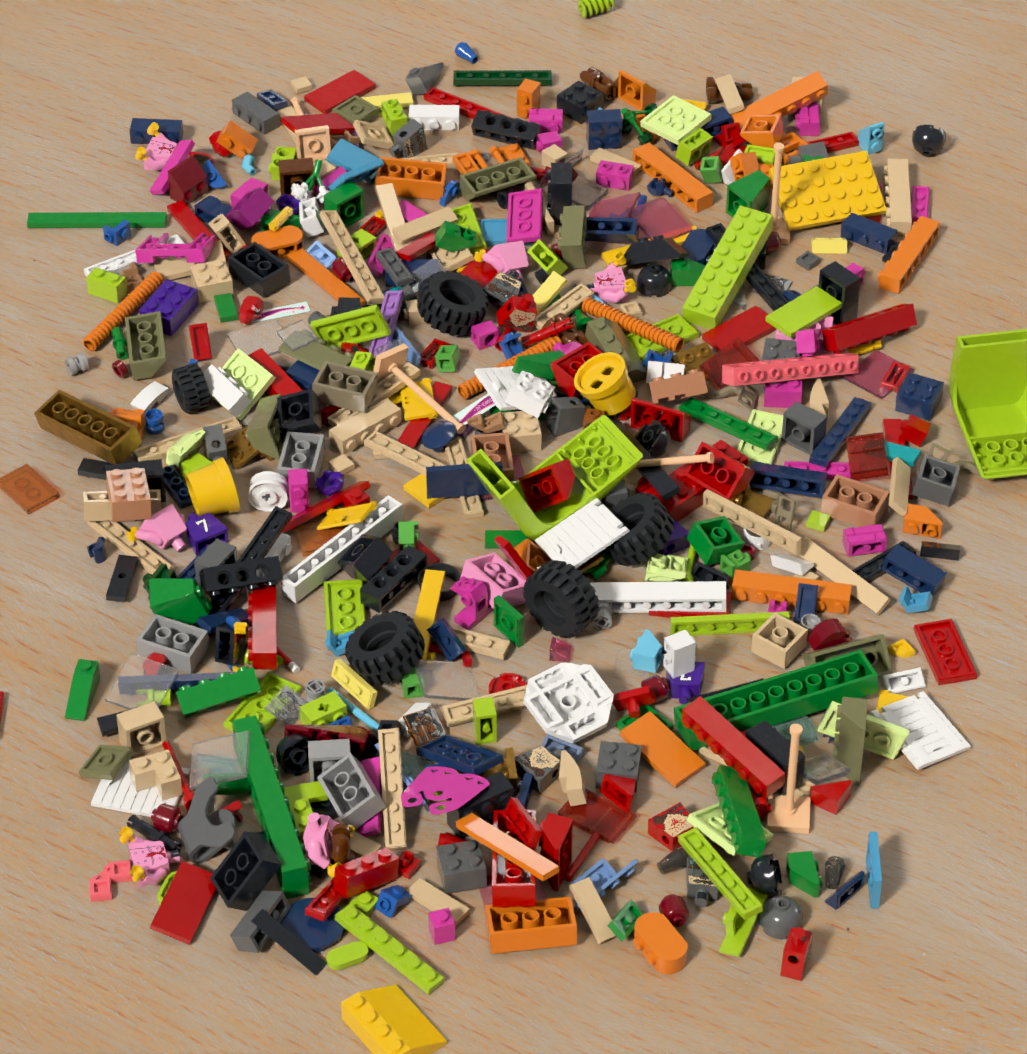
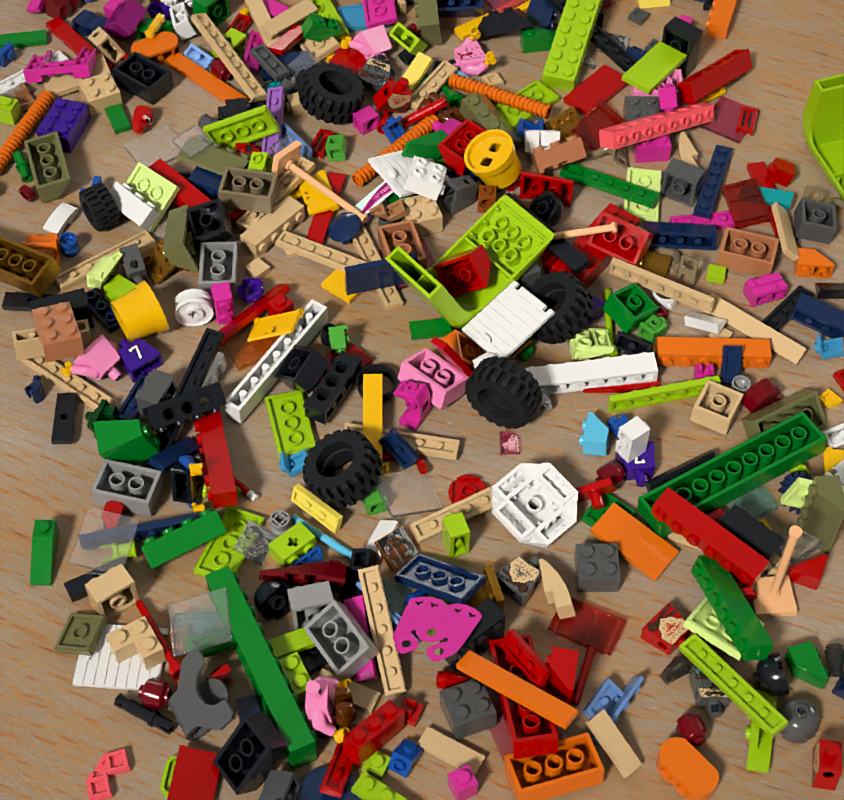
camera: 10 degrees left, 10 degrees up
(148, 858) = (144, 746): bright pink torso -> none
(200, 341) = (100, 157): red tile -> none
(283, 311) = (172, 116): sticker -> none
(508, 621) = (455, 420): green tile -> none
(525, 789) = (510, 606): dark blue plate -> none
(552, 743) = (527, 551): sand blue slope -> none
(619, 790) = (605, 596): red slope -> none
(625, 920) = (647, 749): green plate -> none
(654, 280) = (508, 50): black cylinder -> none
(919, 396) = (775, 137): dark blue brick -> none

